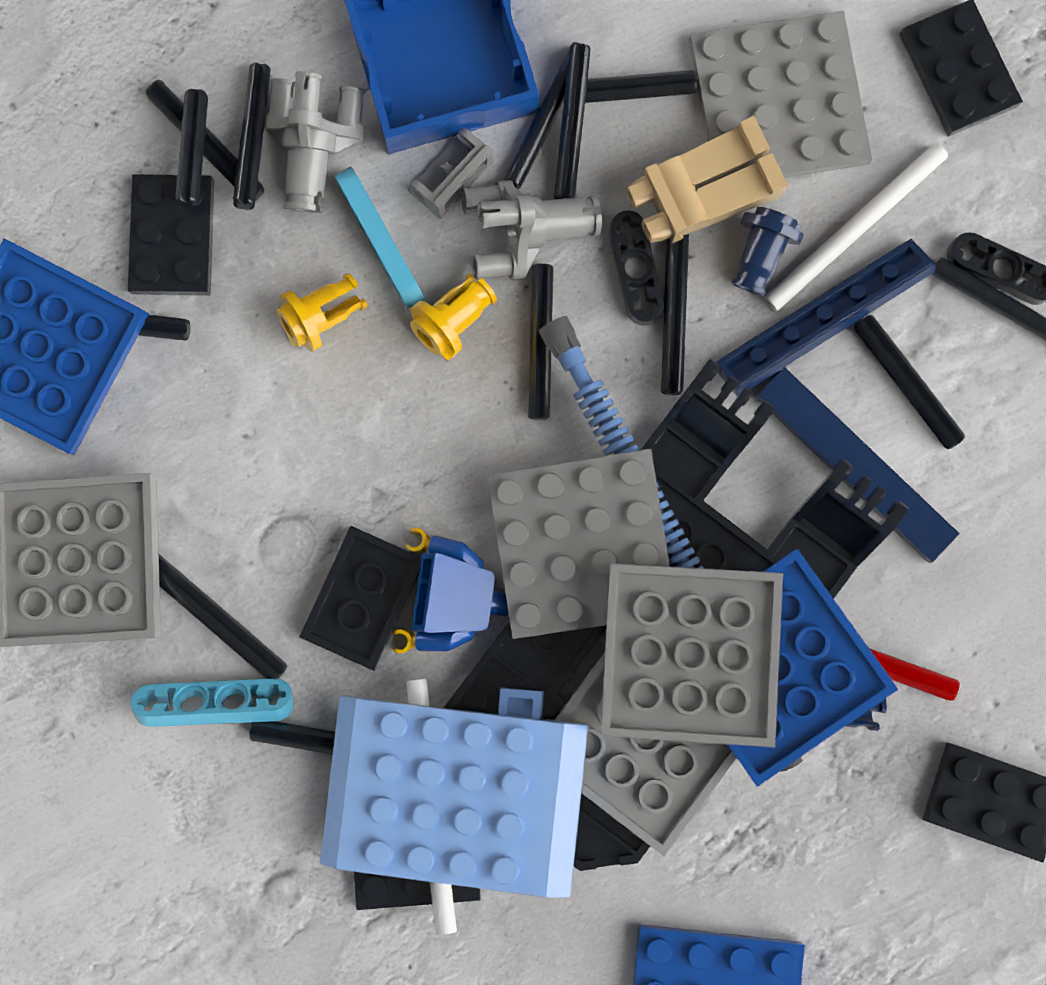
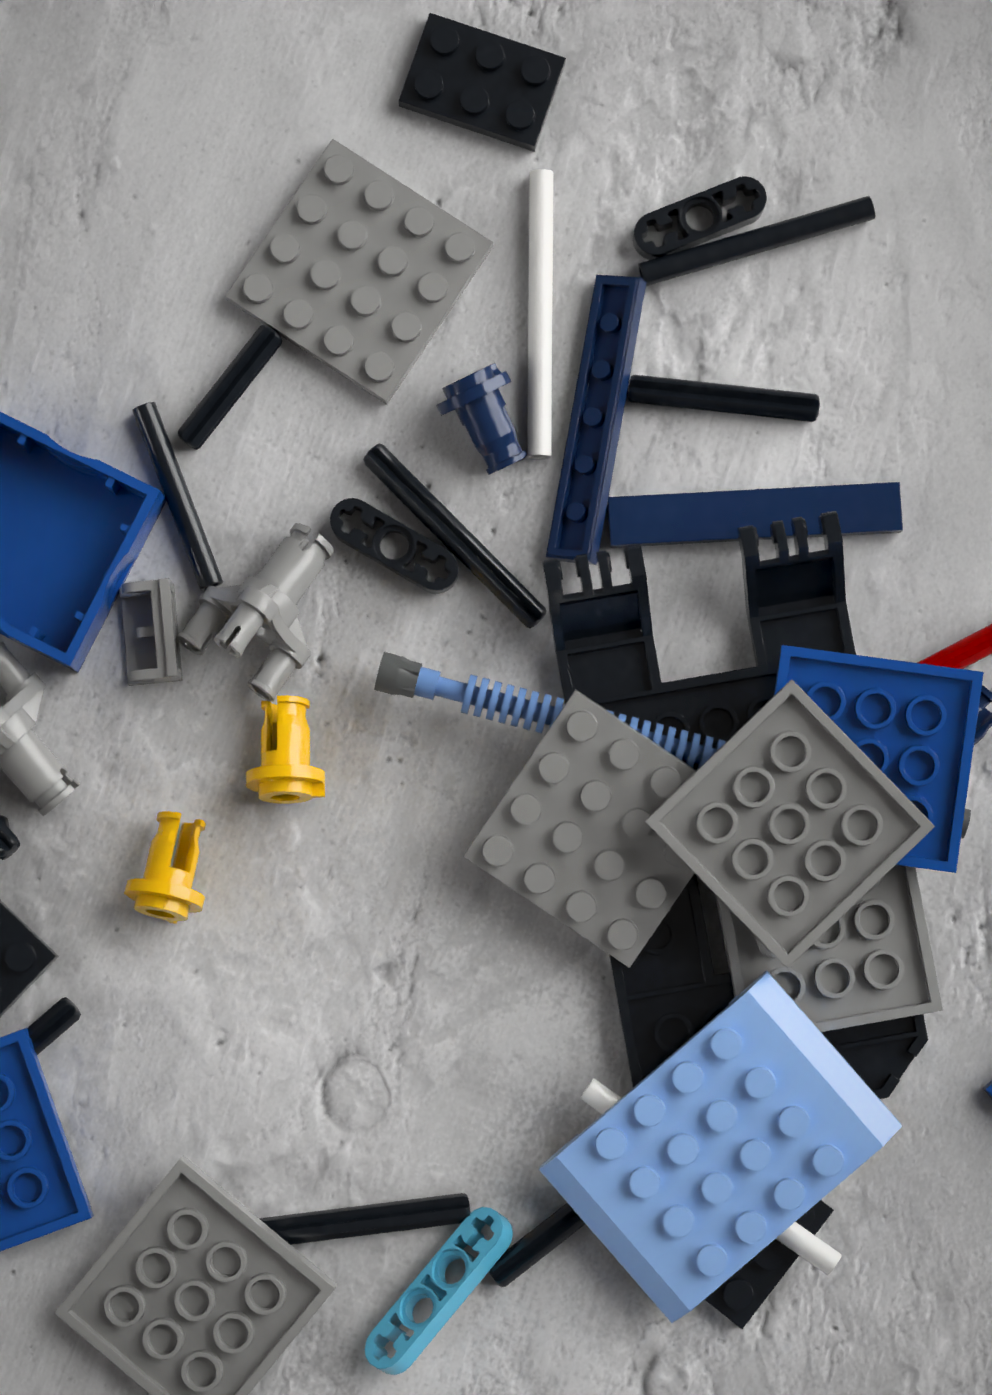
camera: 40 degrees left, 0 degrees up
(362, 598) = (467, 1070): black plate -> none
(379, 237) = (151, 753): medium azure beam -> none
(451, 596) = (540, 987): torso -> none
(521, 703) = (694, 1012): medium blue tile -> none
(539, 353) = (394, 707): black axle -> none
(572, 121) = (208, 480): black axle -> none
(708, 183) = (353, 442): tan hips -> none

